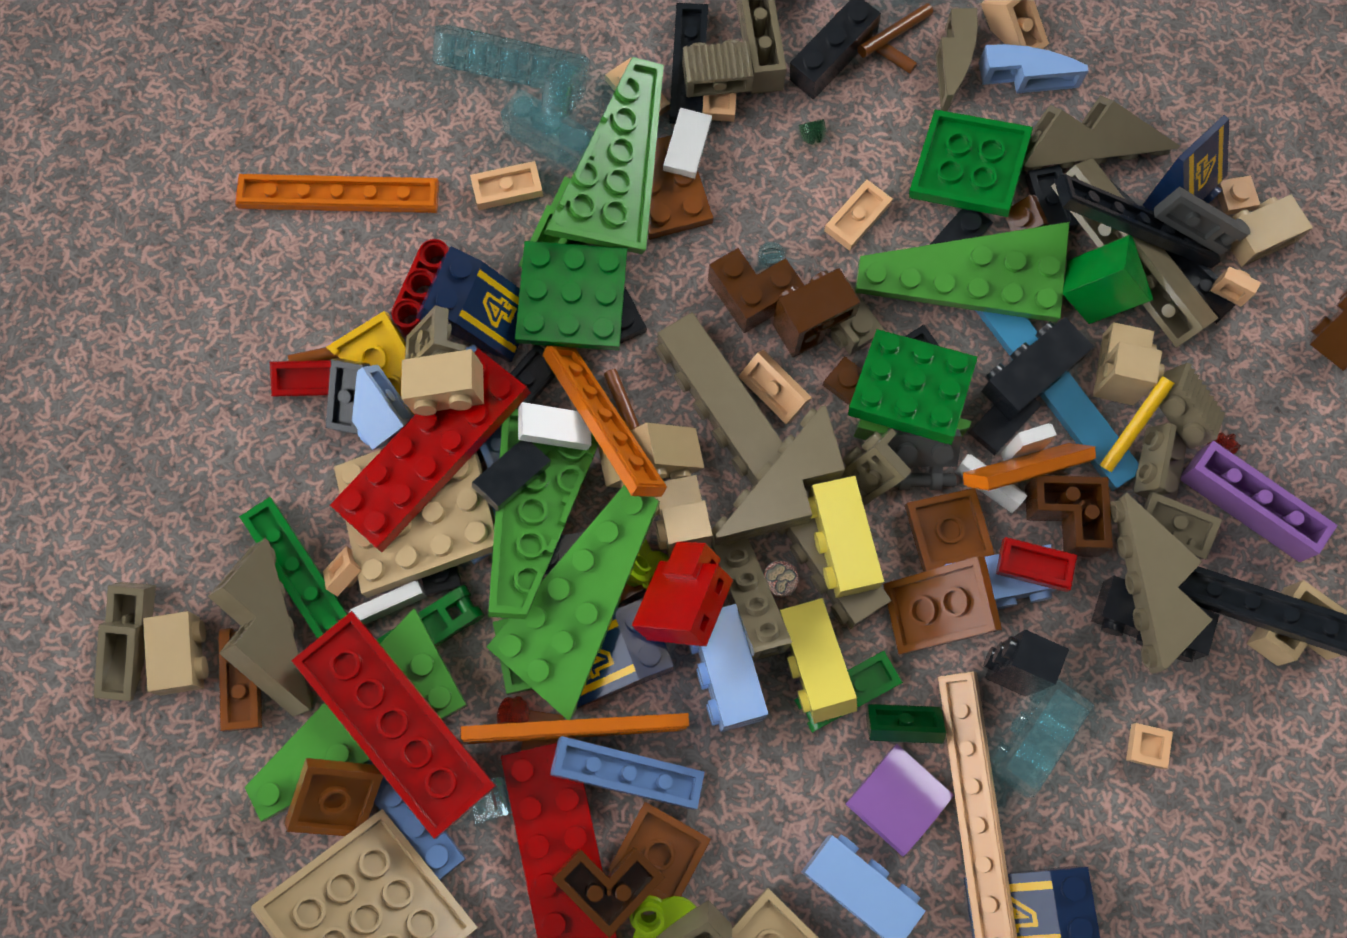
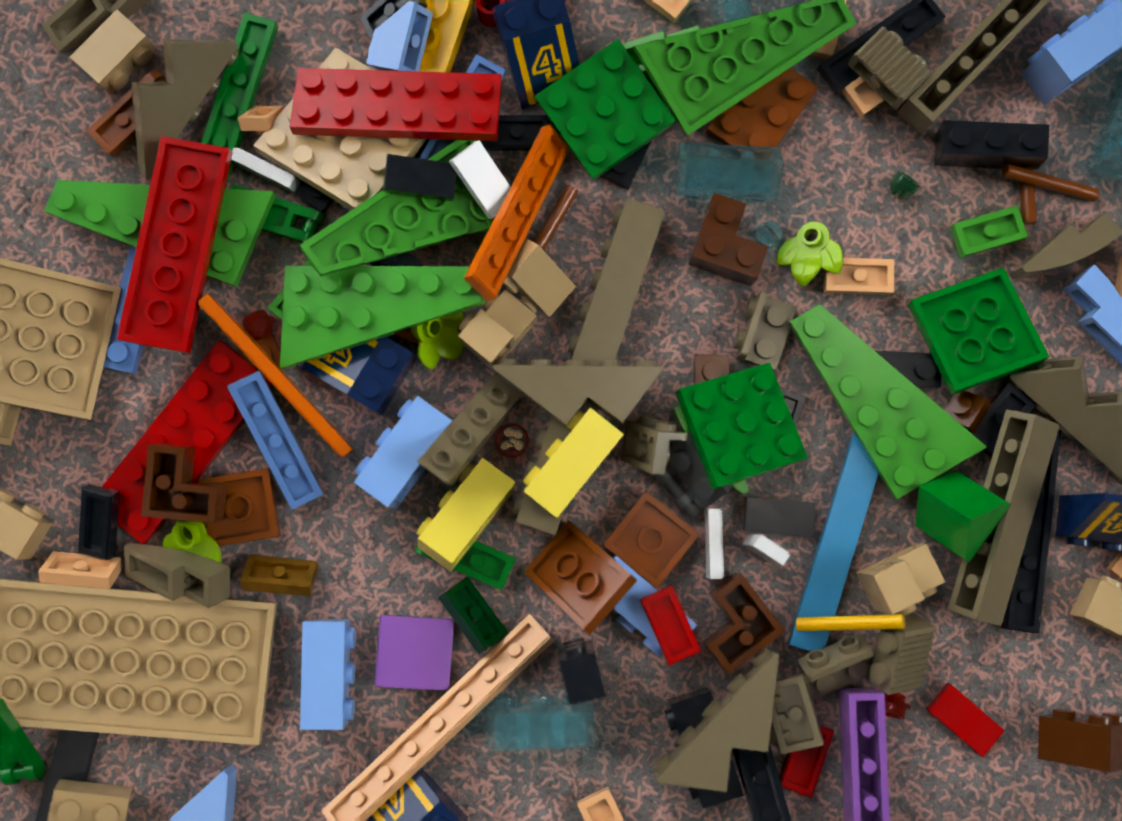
camera: 50 degrees right, 10 degrees up
(332, 797) = (95, 245): dark orange plate -> none
(431, 336) = (467, 39): dark tan bracket -> none
(442, 382) = (446, 69): tan brick -> none
(494, 805) = (183, 363): clear light blue tile -> none
(684, 596) = (426, 378): red piece -> none
(687, 143) = (806, 96): white tile -> none
(698, 242) = (728, 171): none -> clear light blue brick
(745, 865) = (279, 575): none -> pearl gold plate
(774, 386) = (659, 320): light nougat plate -> none
(811, 310) = (742, 302): reddish brown brick -> none
(815, 237) = (810, 256): none -> lime plate
(898, 99) = (988, 231): none -> bright green plate
(1029, 466) = (746, 563): orange tile -> none
(1036, 367) = (837, 510): black brick -> none
(1129, 219) = (1027, 499): black tile -> none
(1200, 221) = (1073, 553): dark grey plate -> none
(1226, 553) = (804, 767): none -> red tile
(1235, 286) = (1041, 621): light nougat plate -> none
(1272, 403) = (965, 719): none -> red tile

